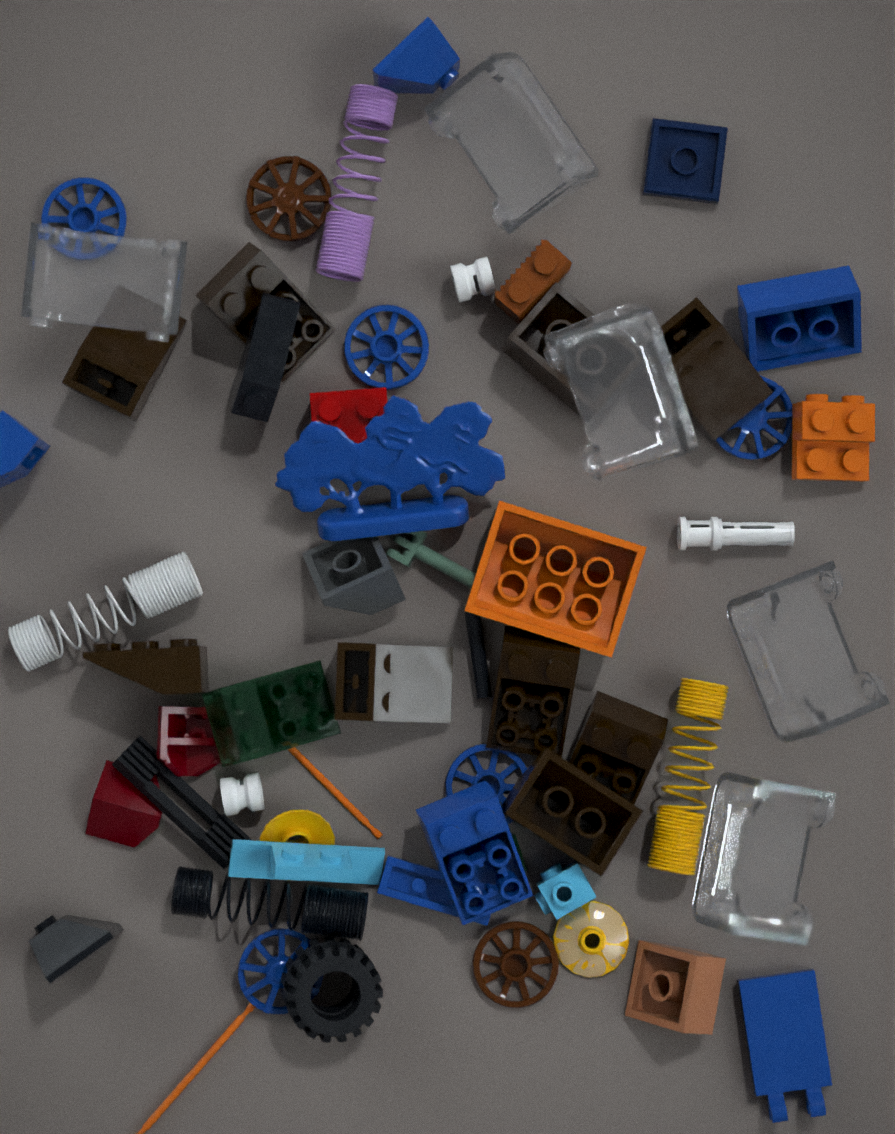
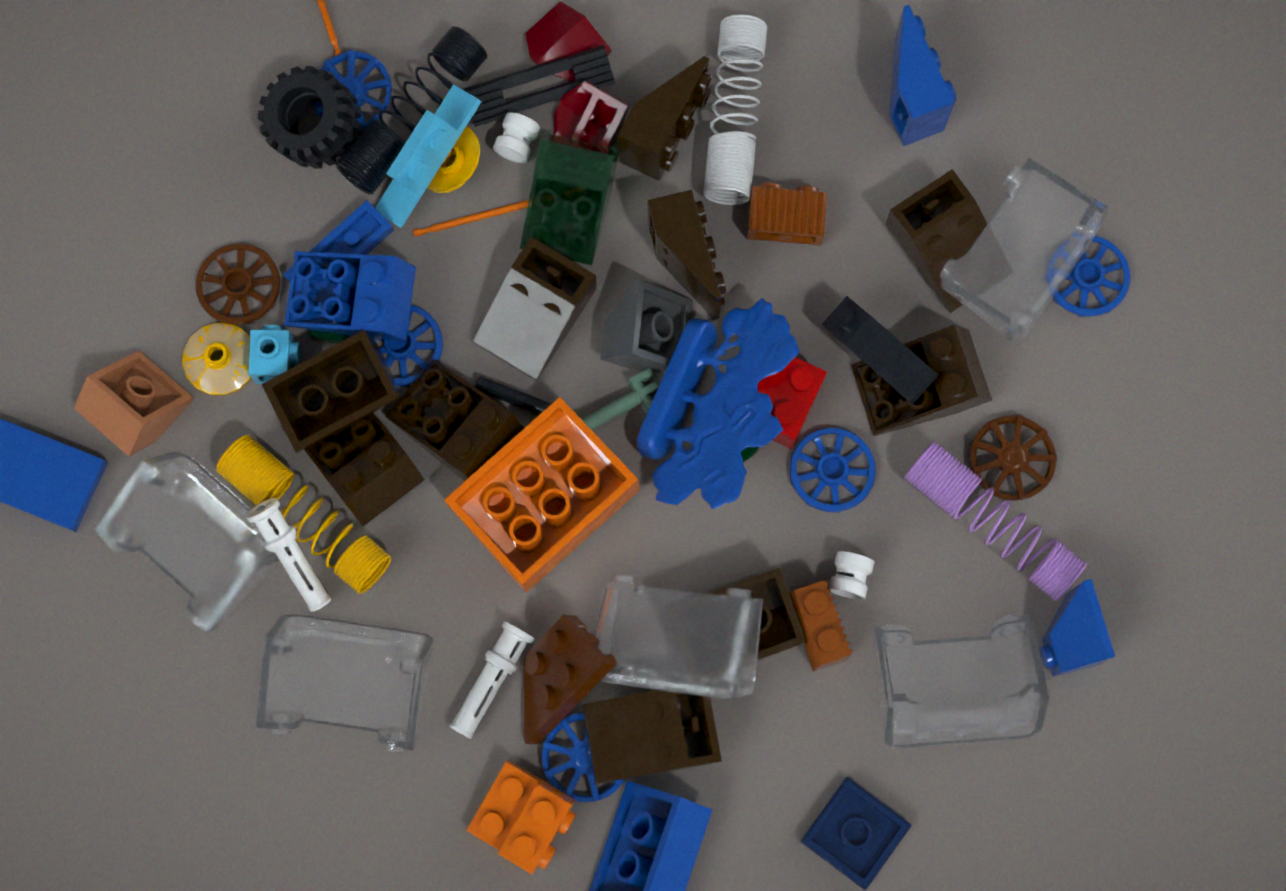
camera: 125 degrees right, 10 degrees down
(178, 510) = (787, 214): none -> dark orange brick
(263, 584) = (684, 251): none -> dark brown slope
(701, 472) = (560, 674): none -> reddish brown wing
(726, 775) = (282, 537): none -> white pin

